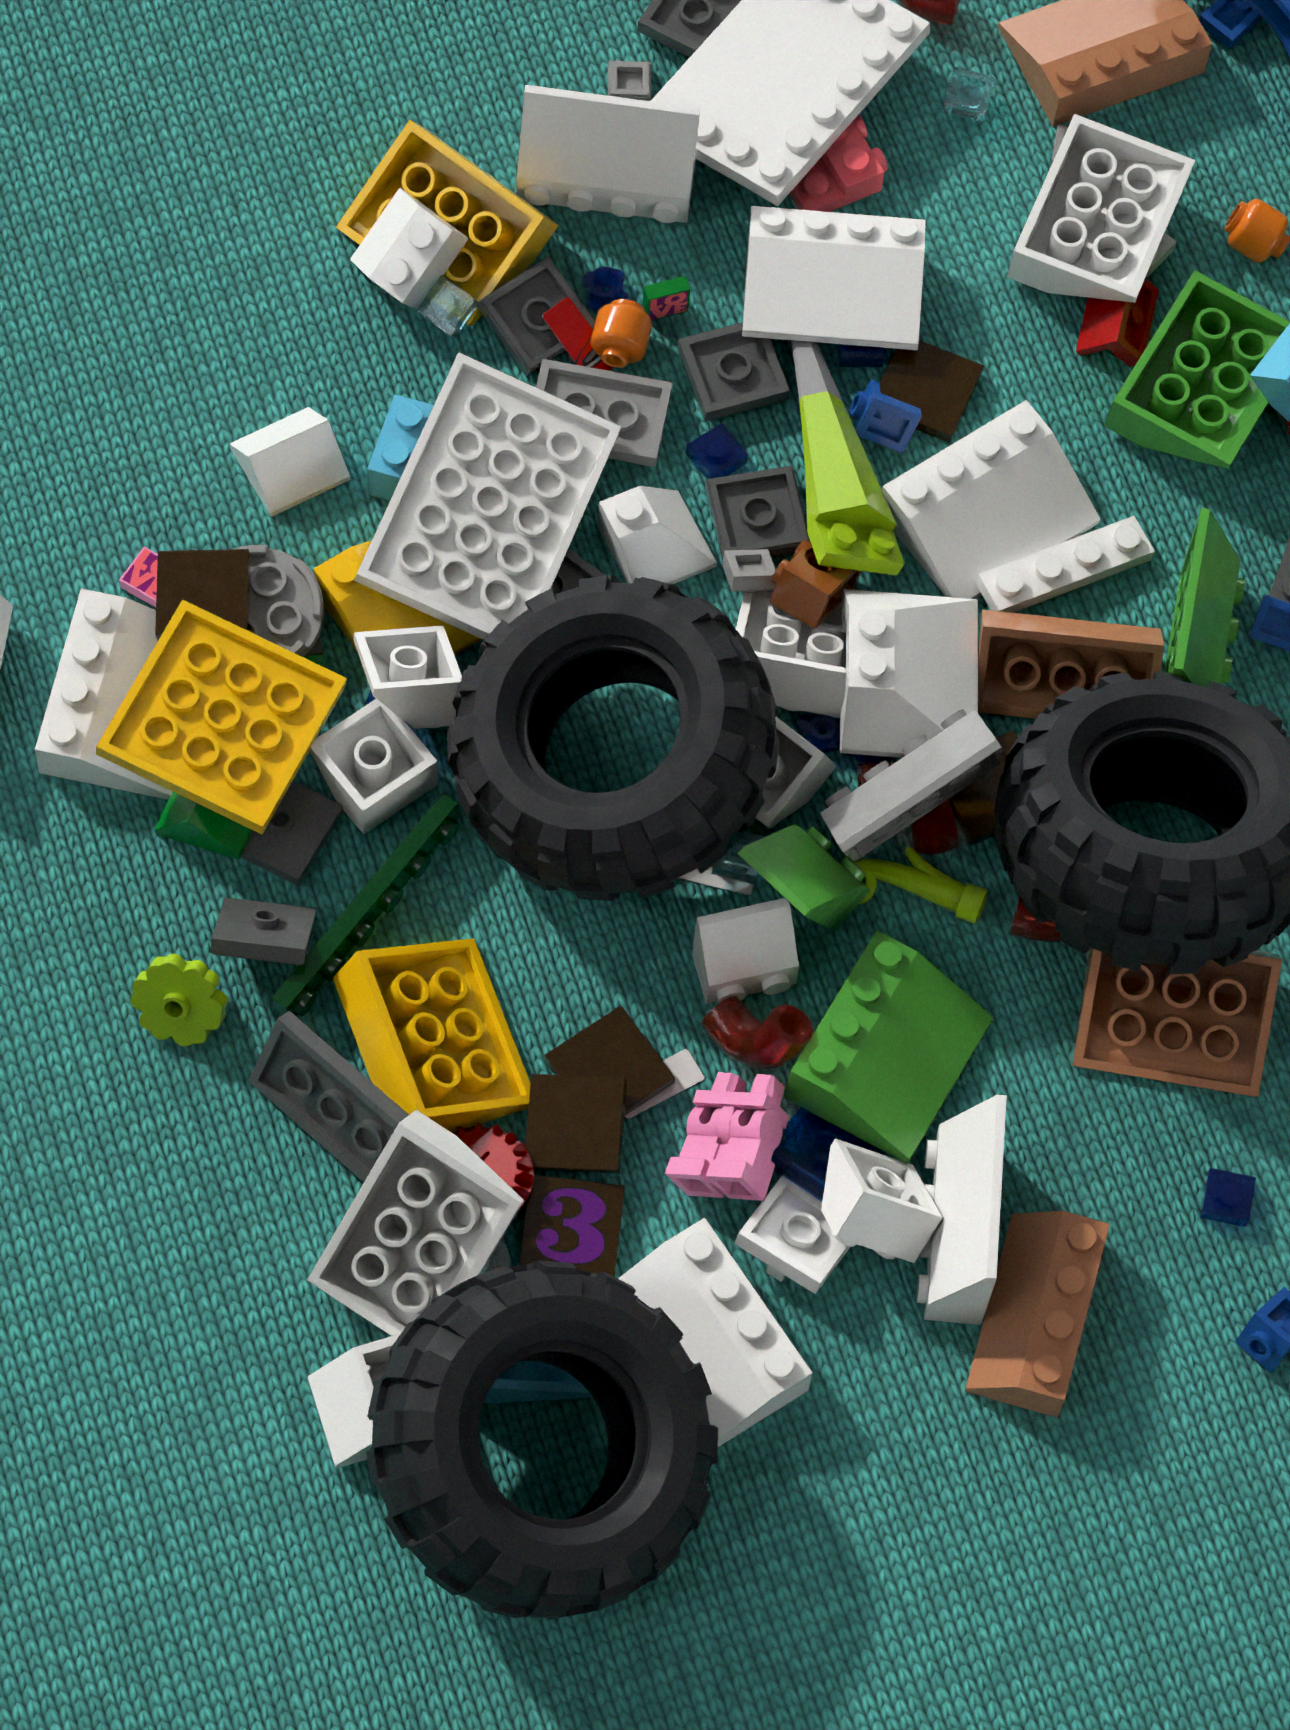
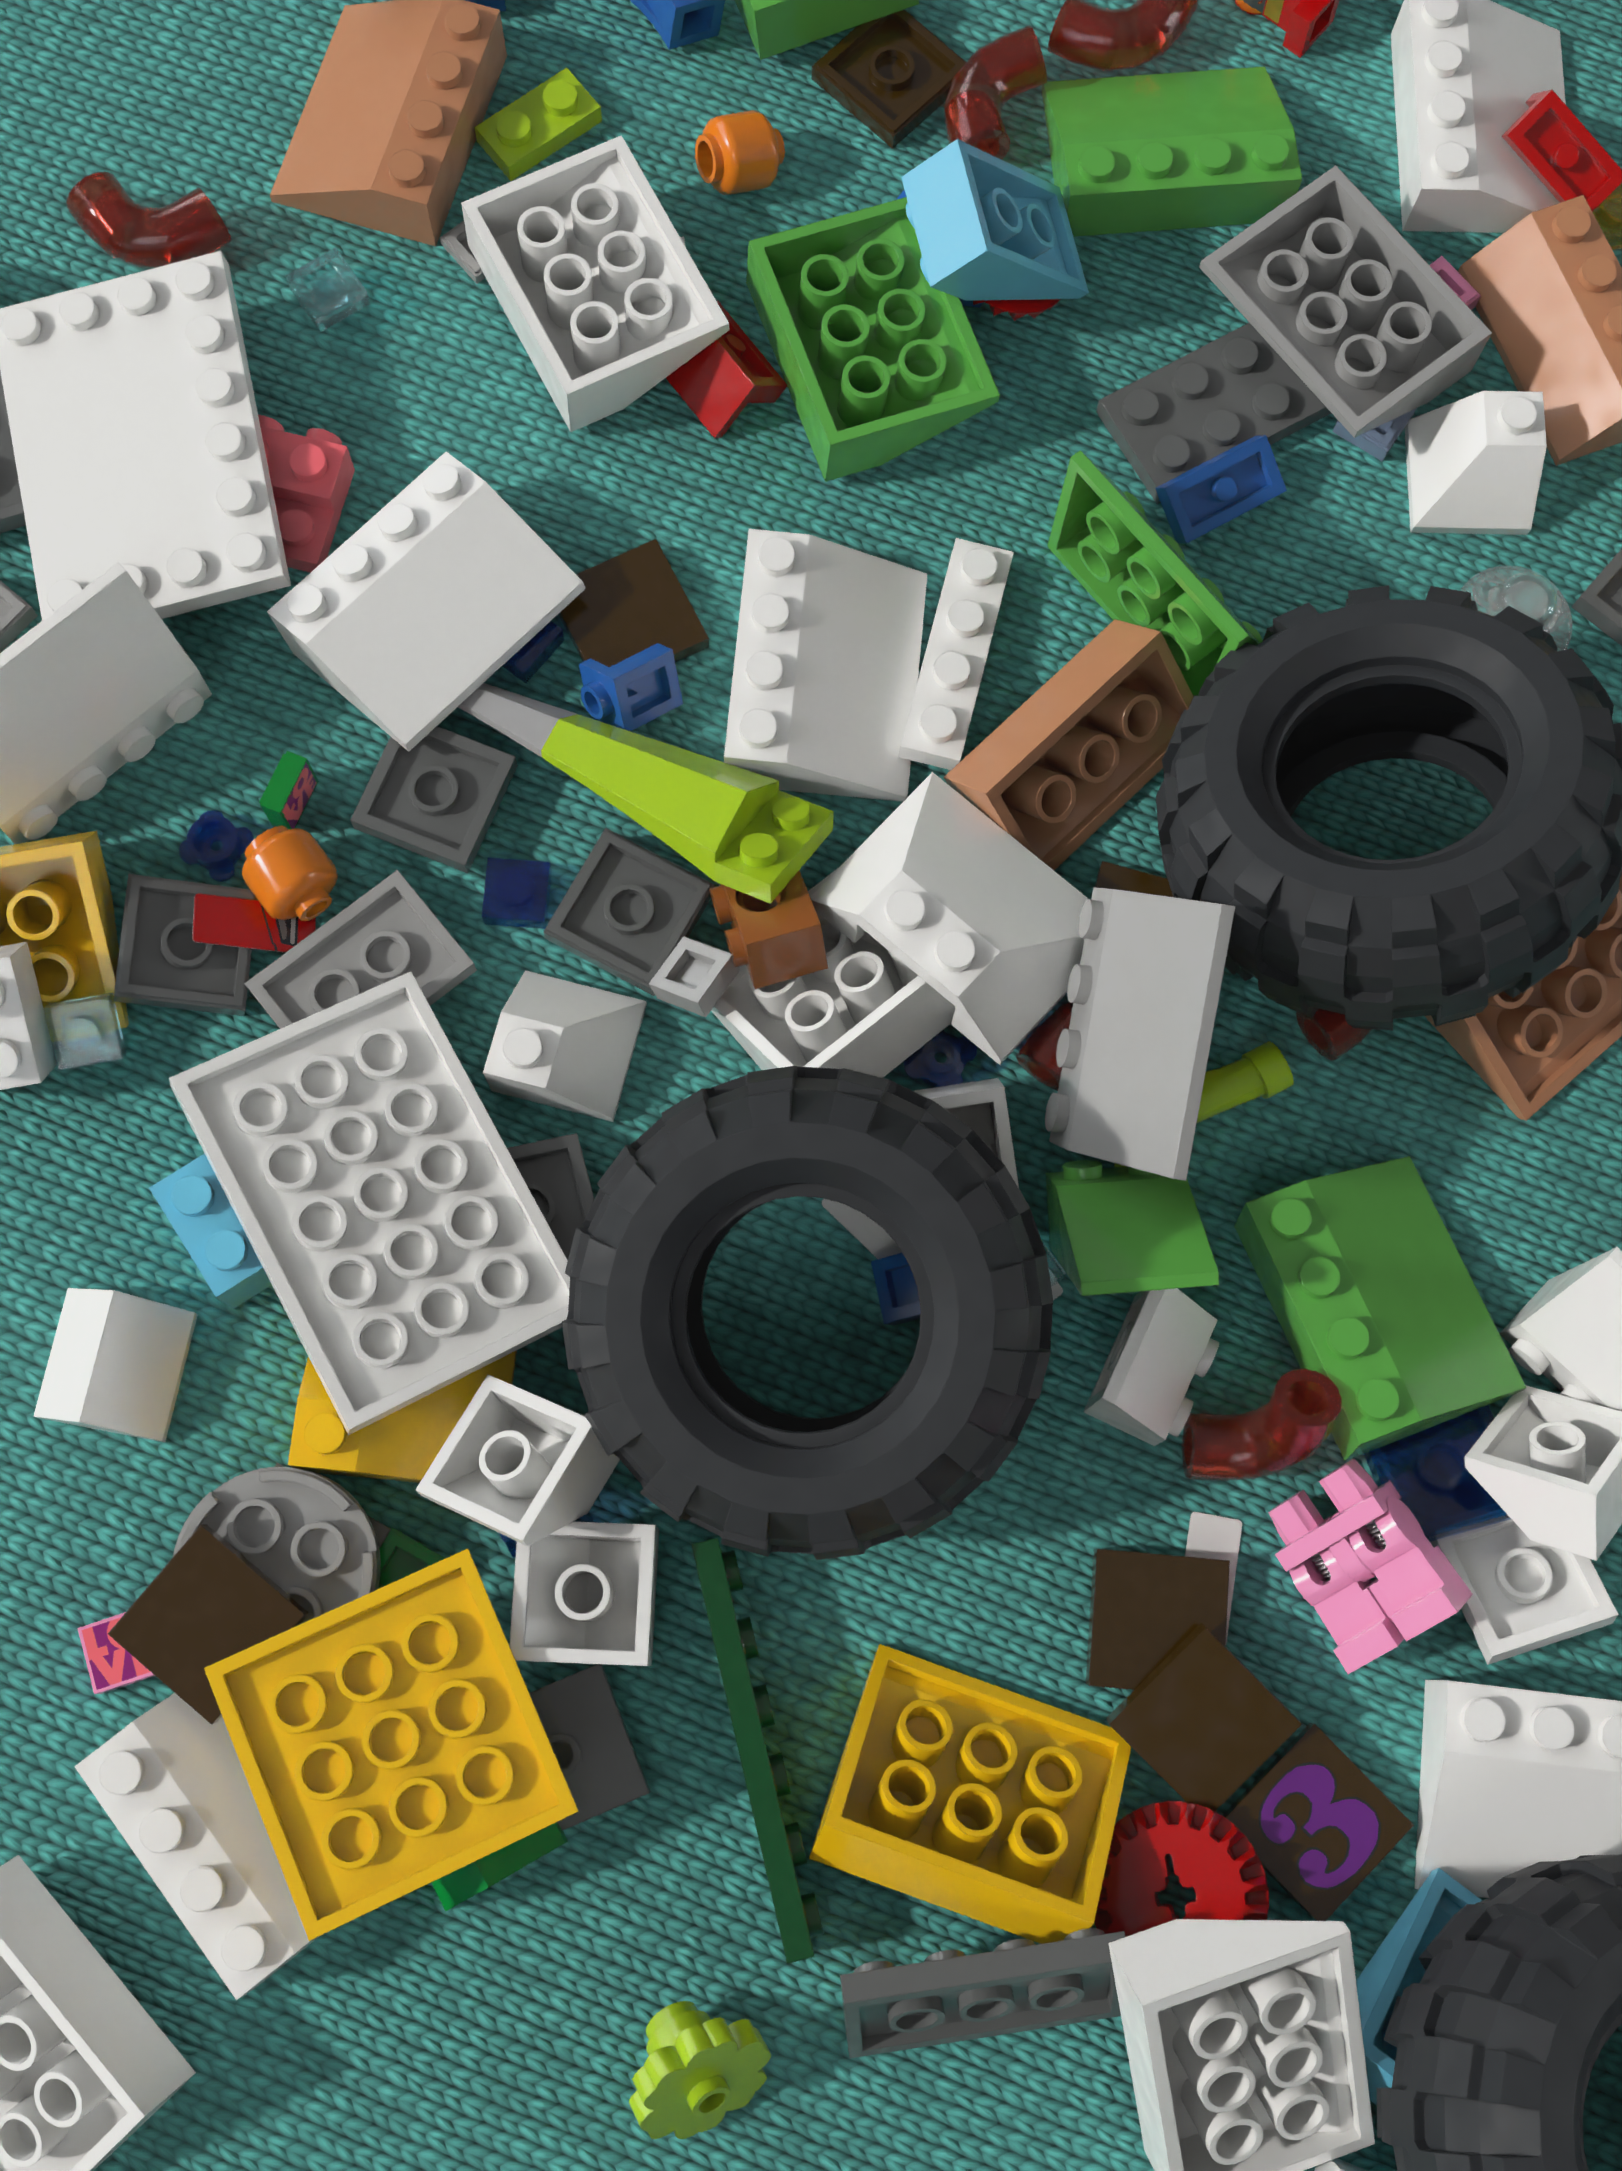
camera: 50 degrees left, 10 degrees up
(263, 931) = (690, 1899): dark grey plate -> none
(1176, 119) = (538, 124): none -> lime plate

